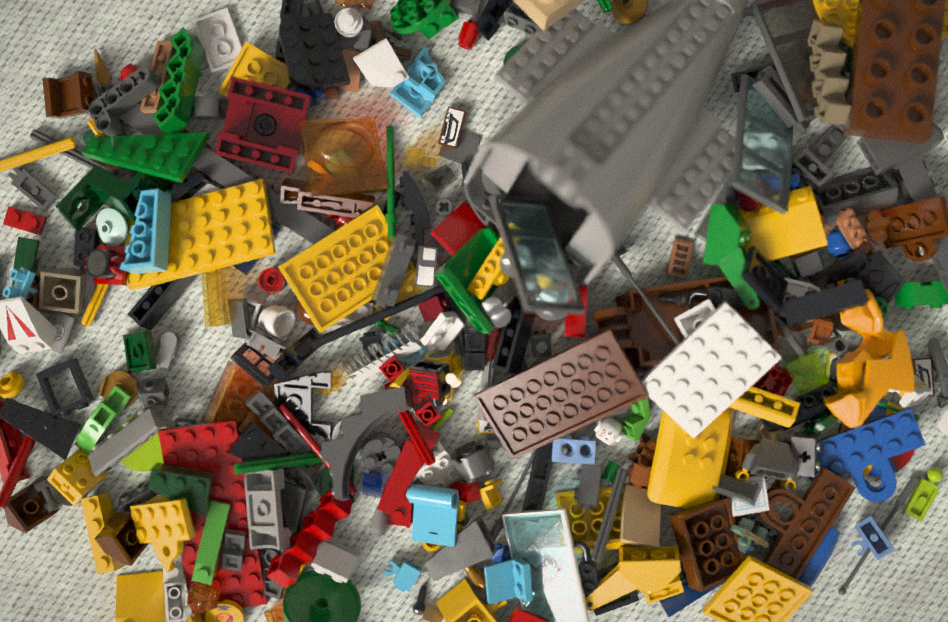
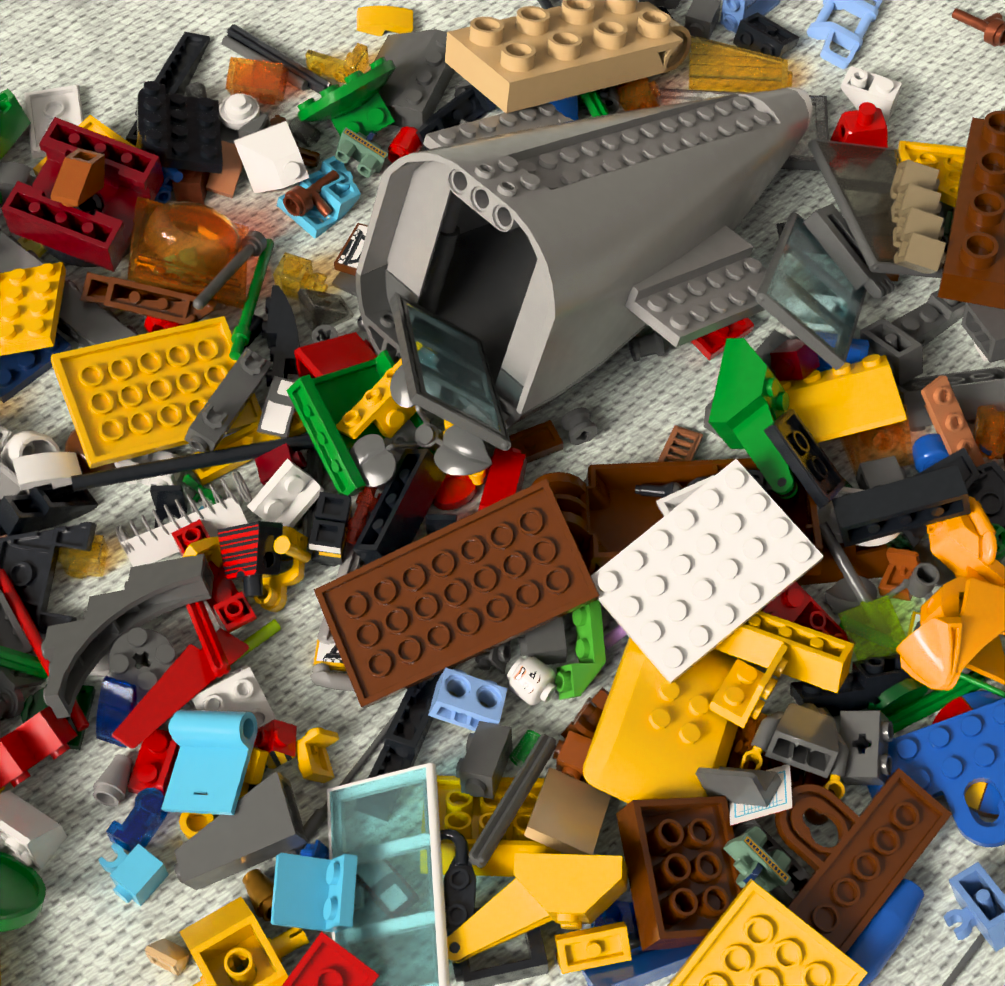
camera: 10 degrees right, 30 degrees down
(261, 126) = (79, 177): none -> dark orange slope
(272, 280) = (40, 404): red wheel -> none
(293, 336) = (45, 469): none -> white slope
(382, 140) = (252, 245): none -> dark grey piece
(402, 542) = (141, 822): none -> clear blue leg
(406, 98) = (301, 200): none -> copper piece
(419, 606) = (150, 933): black piece -> none
(448, 50) = (362, 149): none -> sand green hips
(473, 461) = (295, 691): dark grey brick -> none
(627, 273) = (572, 420): dark grey piece -> none
(738, 430) = (744, 687): none -> yellow bracket

